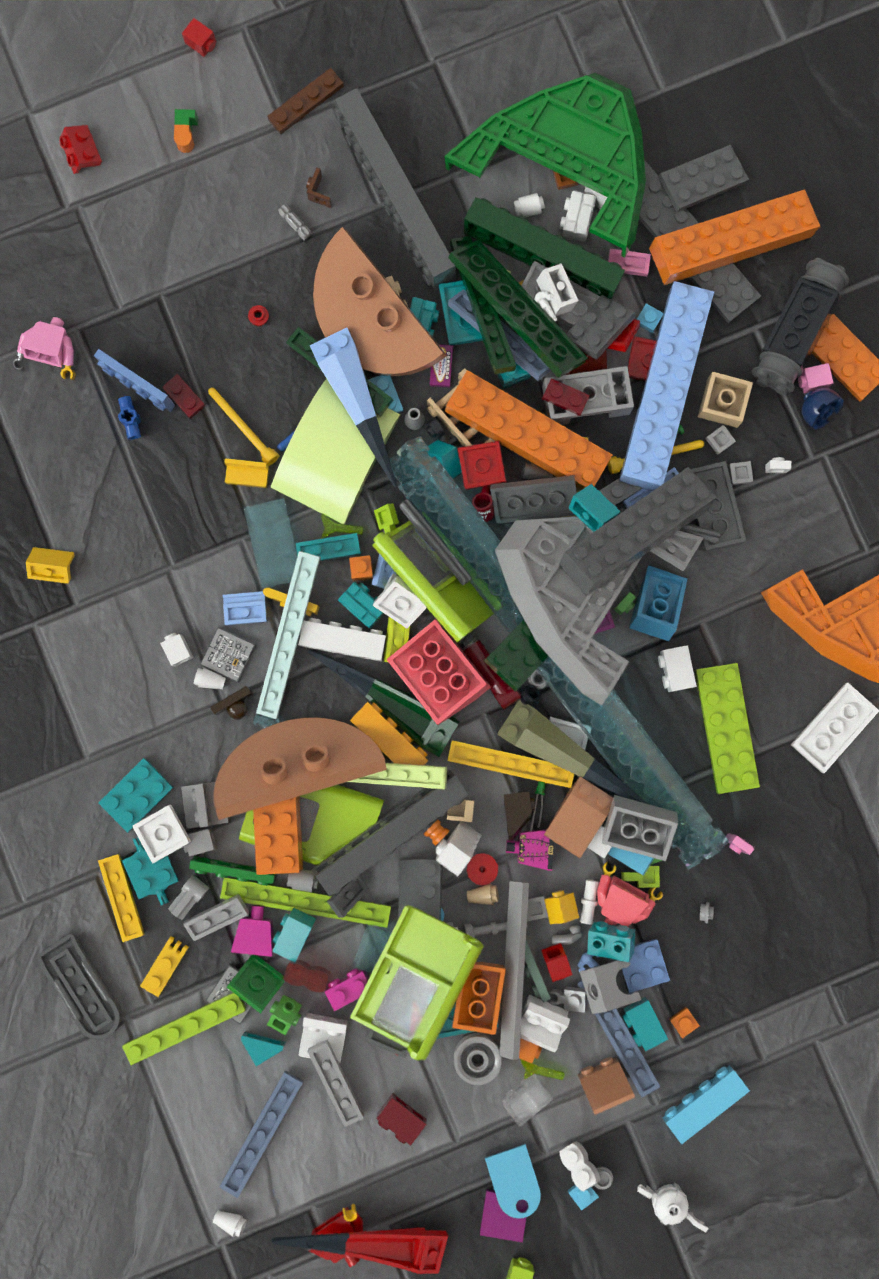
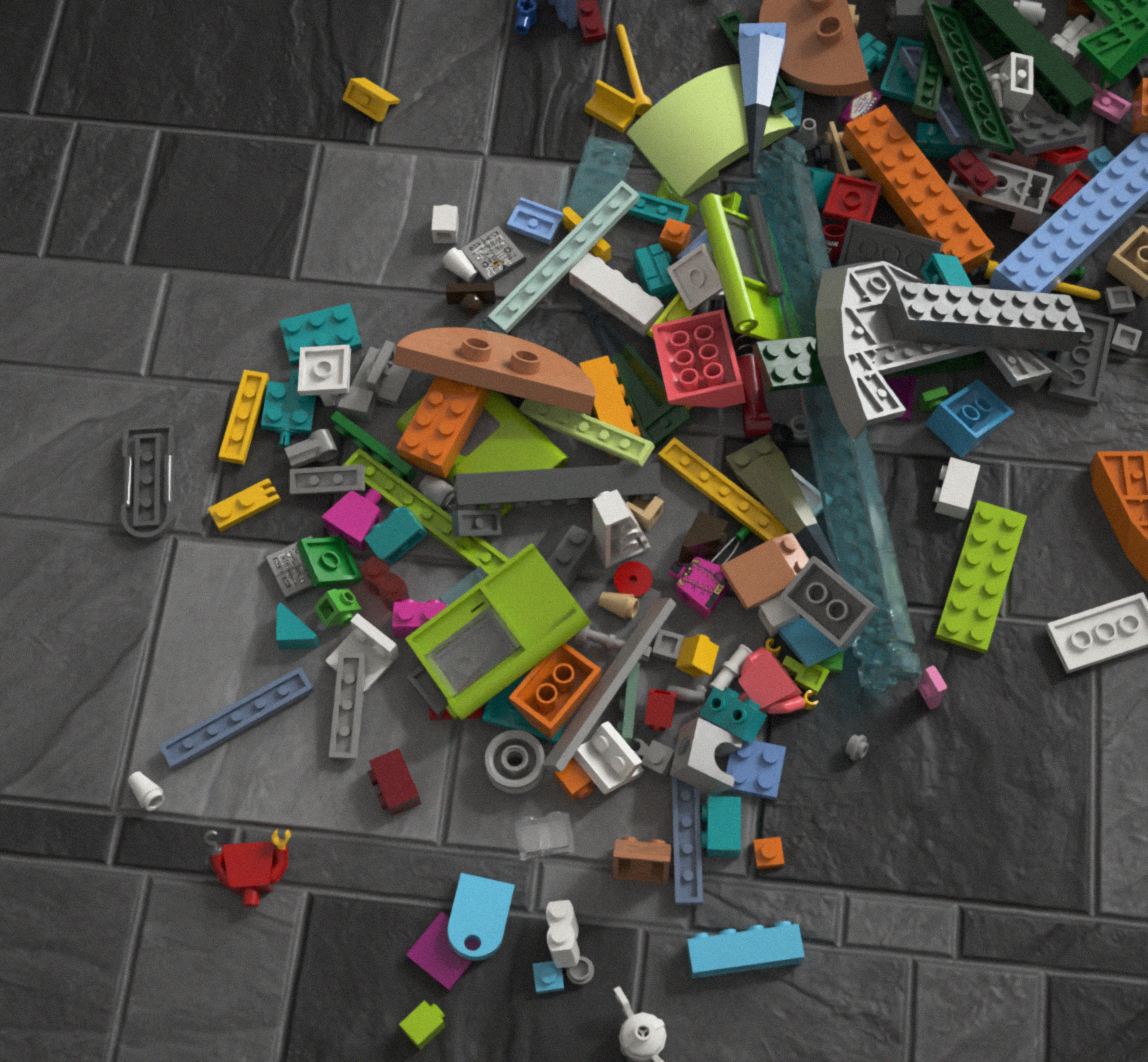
camera: 30 degrees right, 20 degrees down
(183, 1027) = (226, 570): lime plate -> none
(406, 1249) = (313, 914): red plate -> none
(532, 1069) = (567, 806): clear neon green piece -> none

